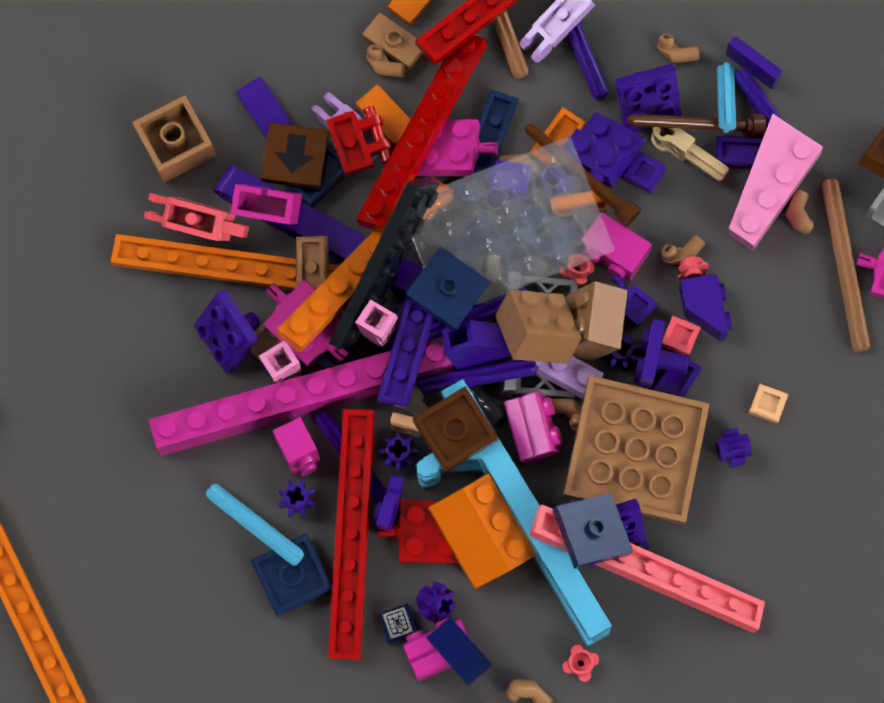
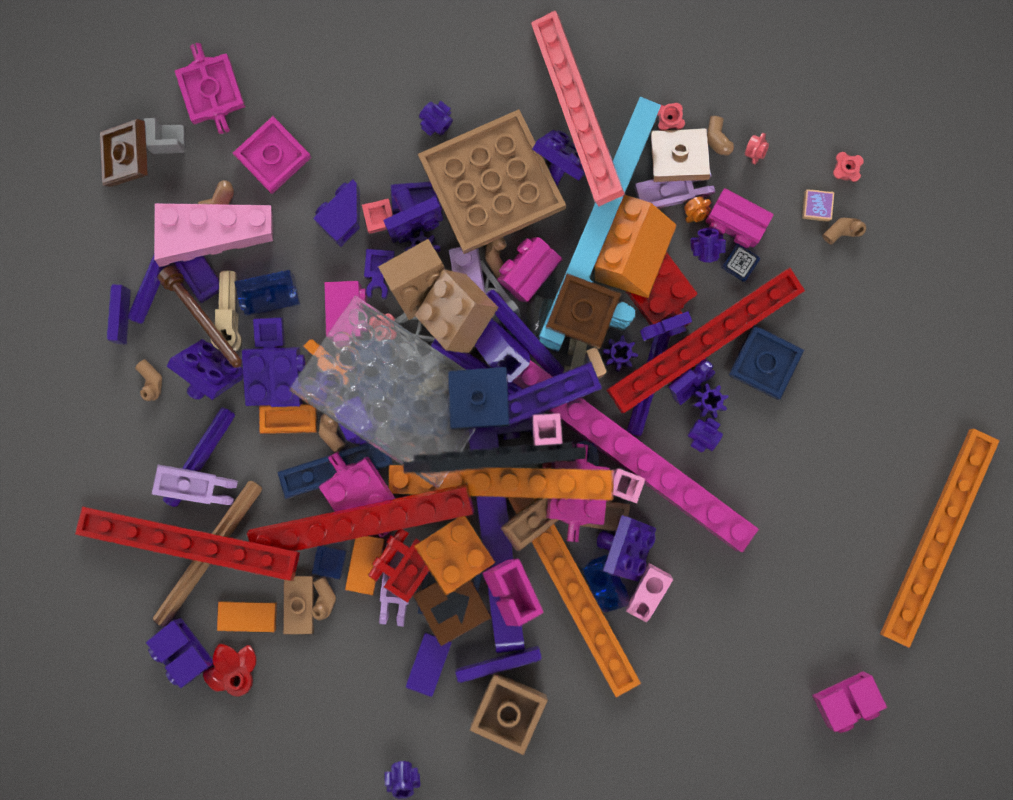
camera: 130 degrees left, 10 degrees up
(178, 326) = (649, 592): none -> bright pink leg
(189, 21) = (402, 779): none -> dark purple gear
(196, 218) = (559, 645): coral hinge -> none
(203, 287) = (606, 587): none -> clear blue leg
(218, 160) = (498, 664): none -> dark purple tile
(254, 524) = (753, 416): medium azure axle -> none
(271, 471) = (705, 435): none -> dark purple gear
(297, 447) = (677, 425): dark pink piece -> none
(326, 493) = (689, 382): none -> dark purple plate
(334, 183) = (454, 554): none -> orange plate
(409, 87) = (329, 562): none -> clear blue plate
(459, 651) = (735, 196): clear blue tile -> none
(475, 619) = (697, 209): none -> orange plate
(511, 610) = (670, 193): none -> lavender hinge
(537, 640) = (680, 155): none -> plate
(592, 530) = (585, 153): dark blue plate -> none
(624, 210) = (313, 319): reddish brown piece -> none
(674, 255) = (313, 260): medium nougat arm -> none
(681, 196) = (267, 292): none -> clear blue hinge
(692, 267) = (320, 242): coral plate -> none
(726, 97) = (164, 311): medium azure axle -> none
(768, 404) = (382, 121): light nougat tile -> none
(805, 285) = (272, 155): none -> dark pink plate
(845, 265) = (234, 139): medium nougat axle -> none

